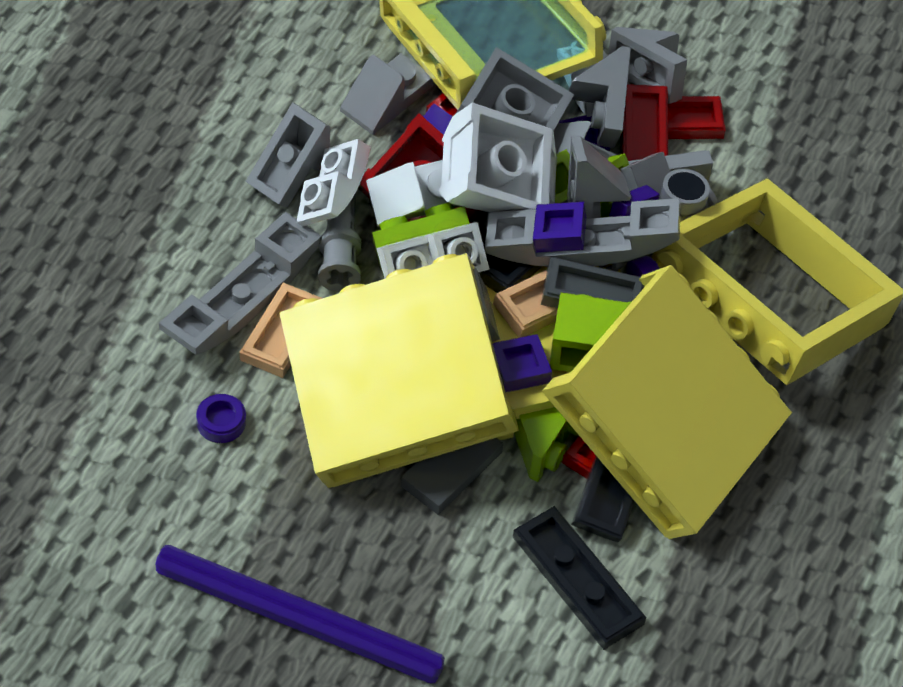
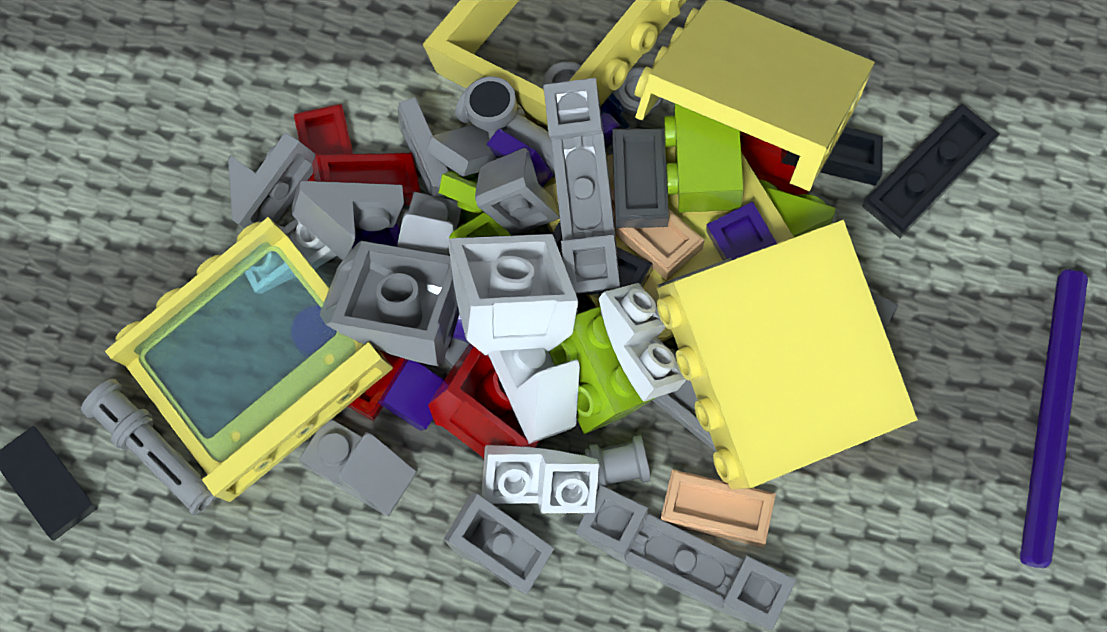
camera: 95 degrees left, 15 degrees up
(221, 418) = (848, 546): dark purple tile -> none
(559, 227) = (579, 212): dark purple tile -> none

